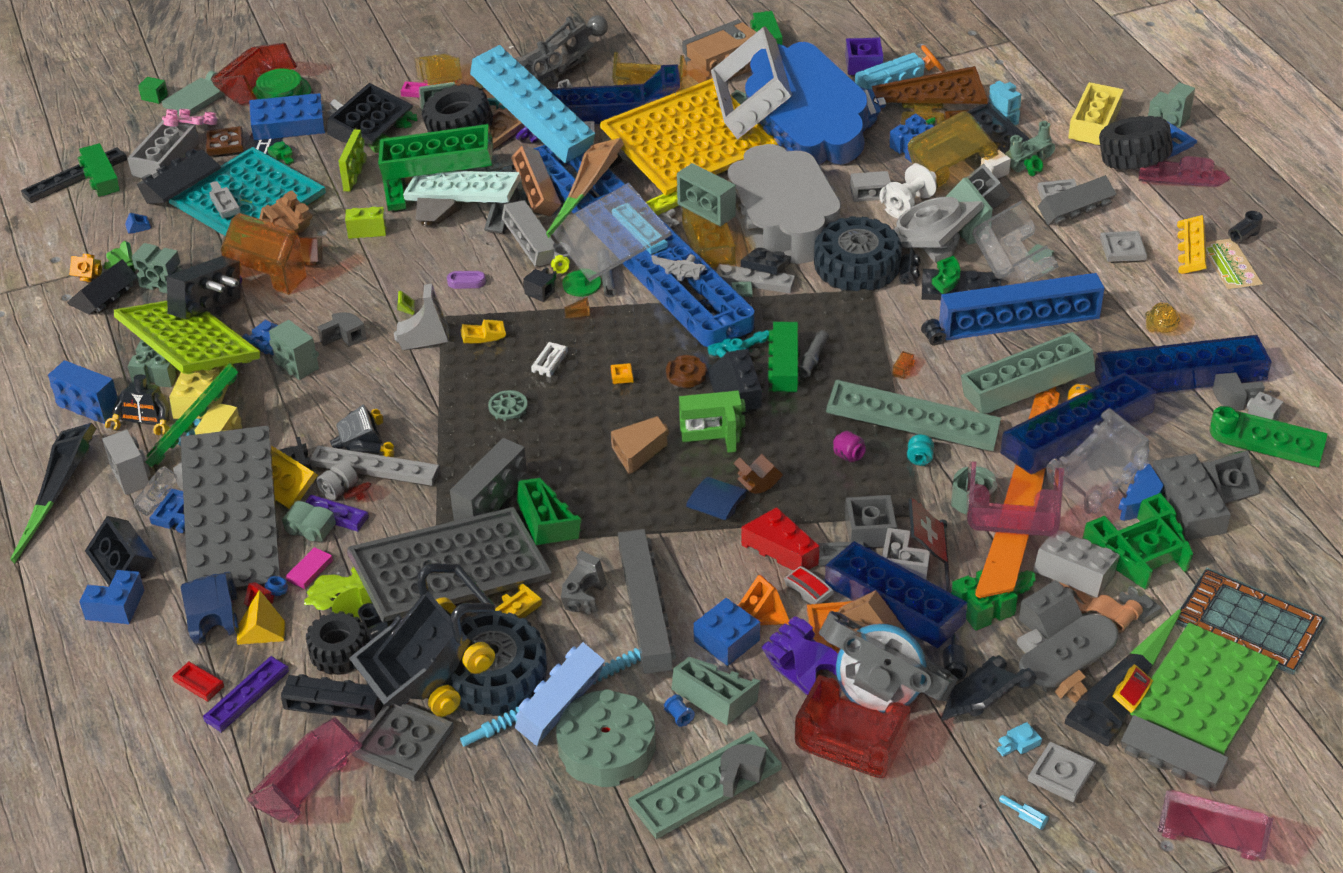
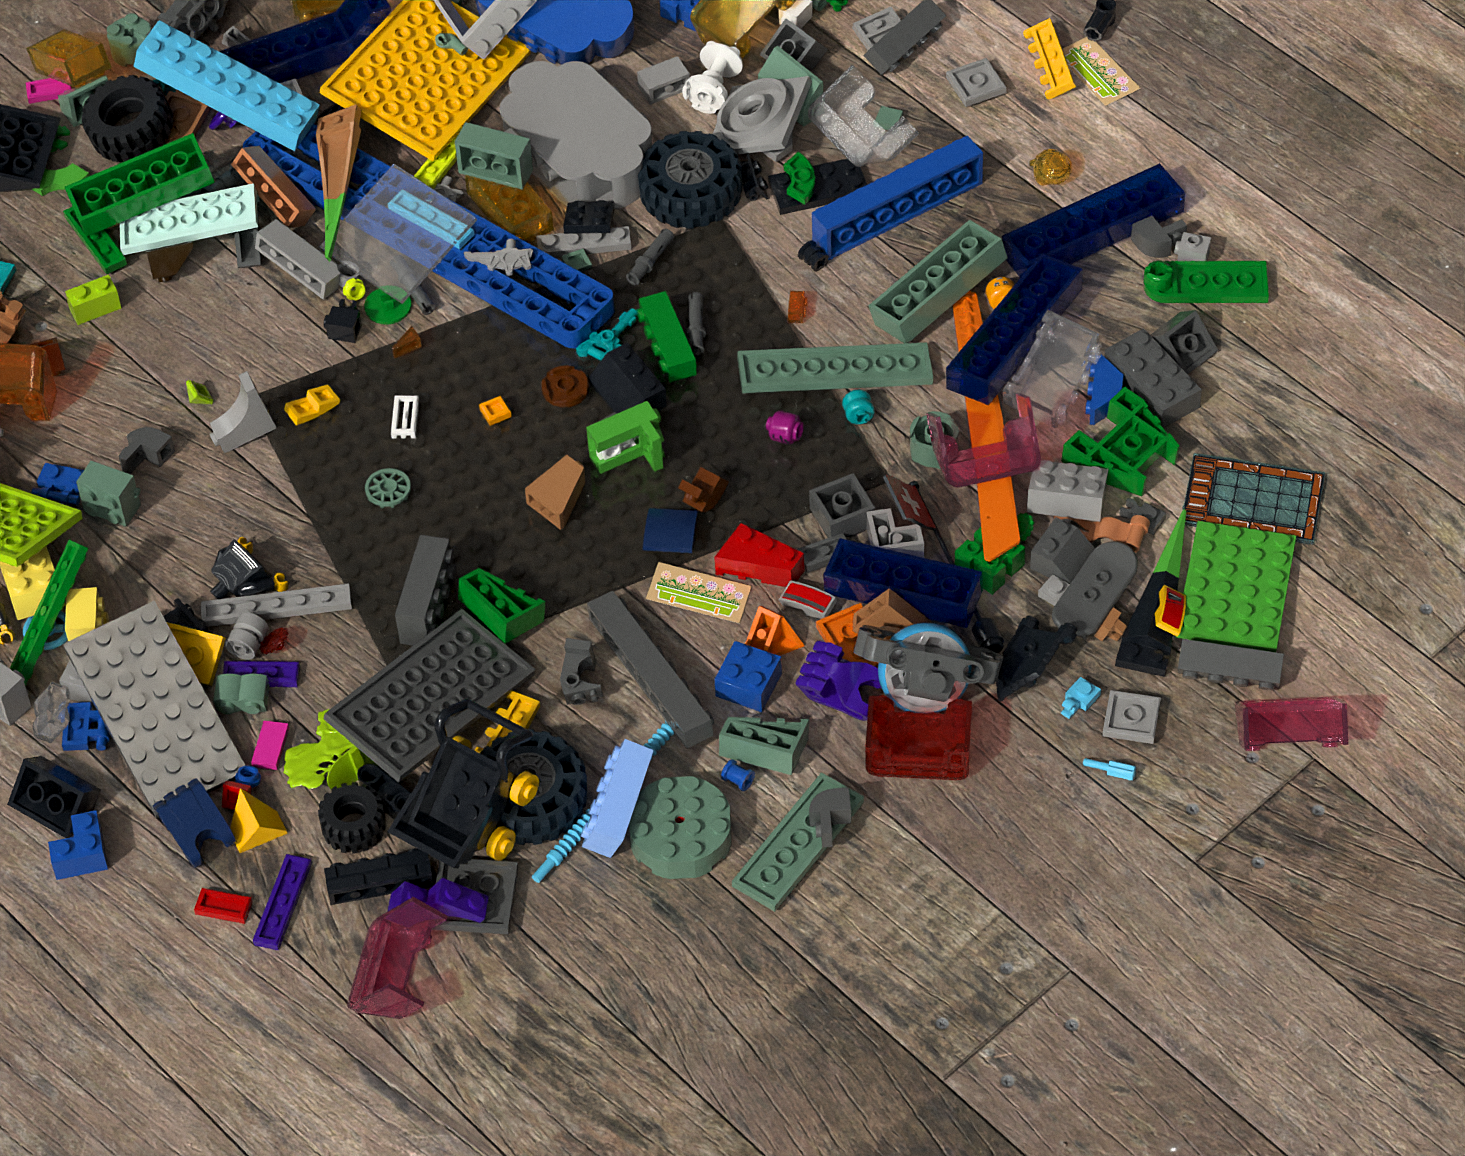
camera: 20 degrees left, 10 degrees up
(352, 160) = (32, 224): lime plate -> none
(373, 733) = (445, 897): none -> dark purple arch
(466, 279) = (251, 340): medium lavender tile -> none
(716, 119) = (450, 41): none -> sand green arm
(719, 554) = (698, 592): none -> sticker
(793, 301) = (645, 263): none -> dark grey pin

